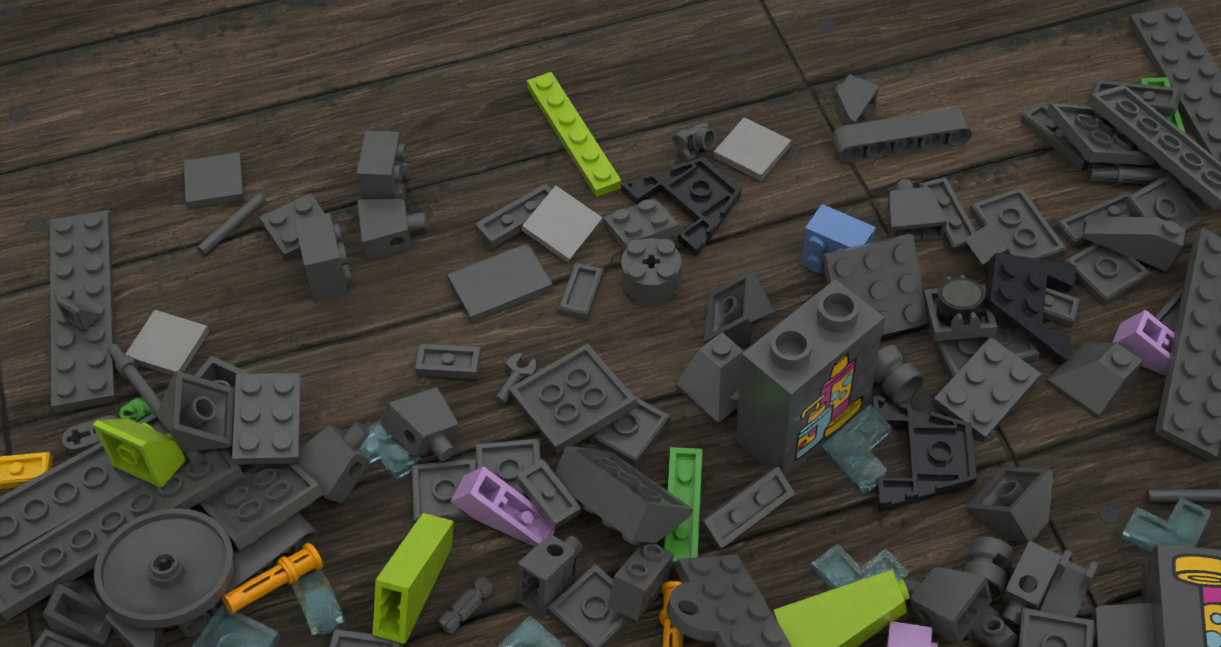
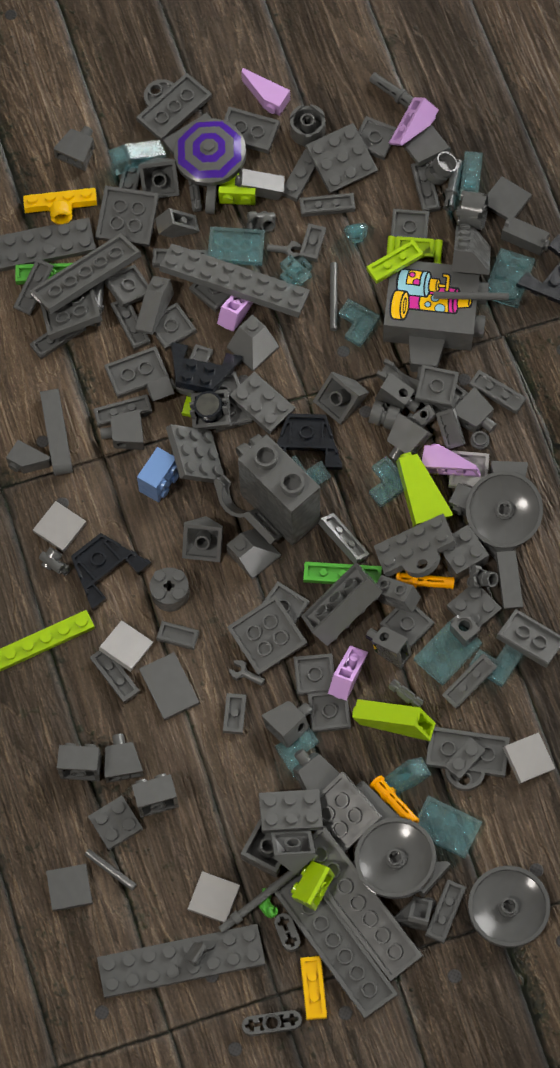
camera: 90 degrees left, 15 degrees up
(548, 494) = (340, 645): dark grey plate -> none
(641, 222) = (128, 596): dark grey plate -> none

